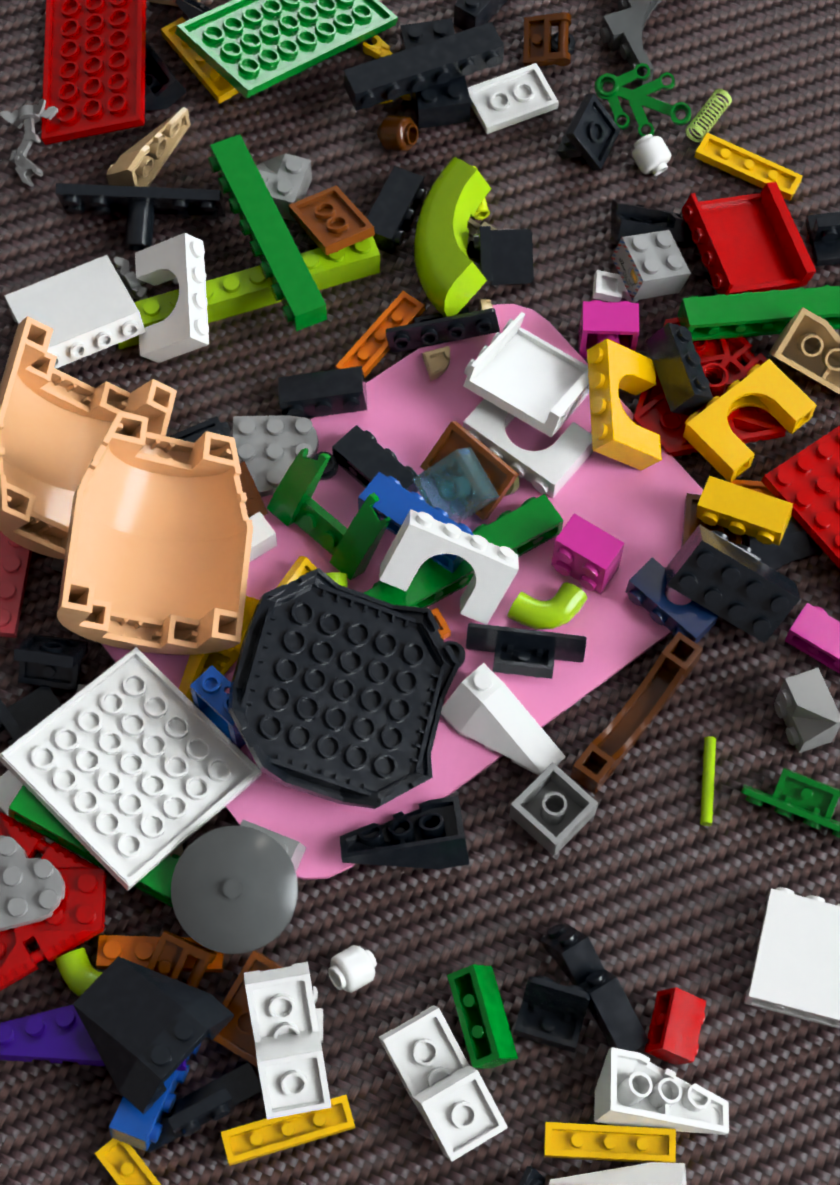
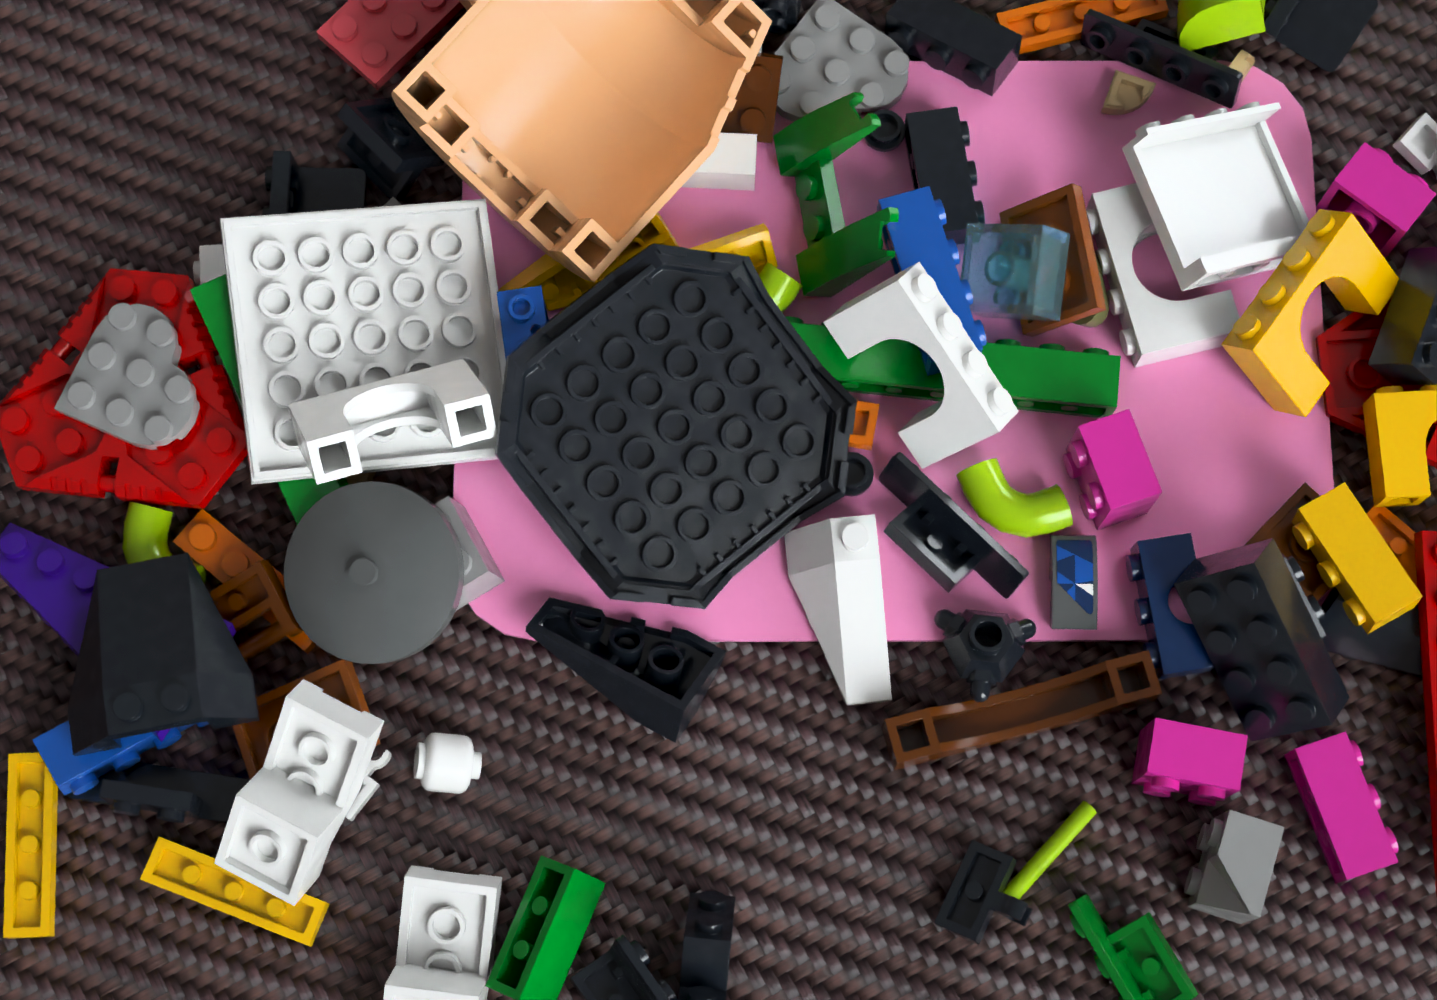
camera: 40 degrees right, 10 degrees up
(159, 819) = (436, 396): none -> white arch
(553, 809) = (824, 752): light grey brick -> none
(591, 693) = (983, 646): none -> black rock
(611, 626) = (1073, 582): none -> slope
(691, 823) = (979, 893): none -> black plate
(742, 674) = (1189, 761): none -> dark pink brick

